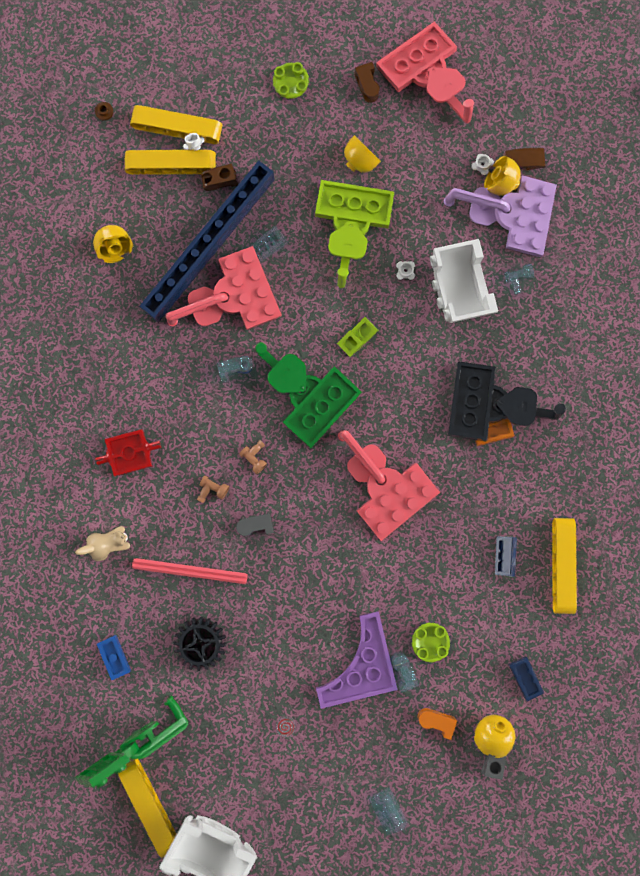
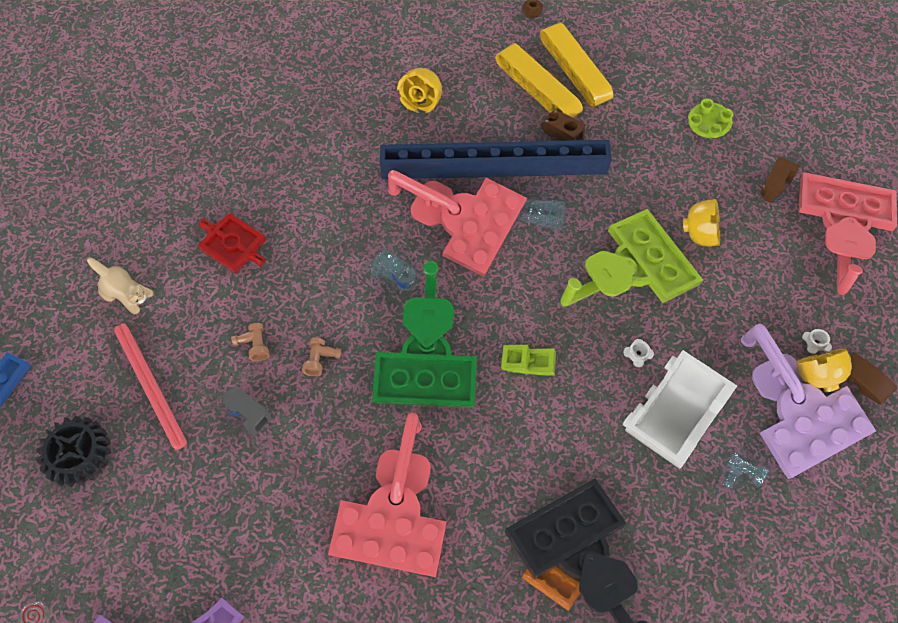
camera: 55 degrees right, 20 degrees down
(193, 142) = (573, 83): white plate -> none

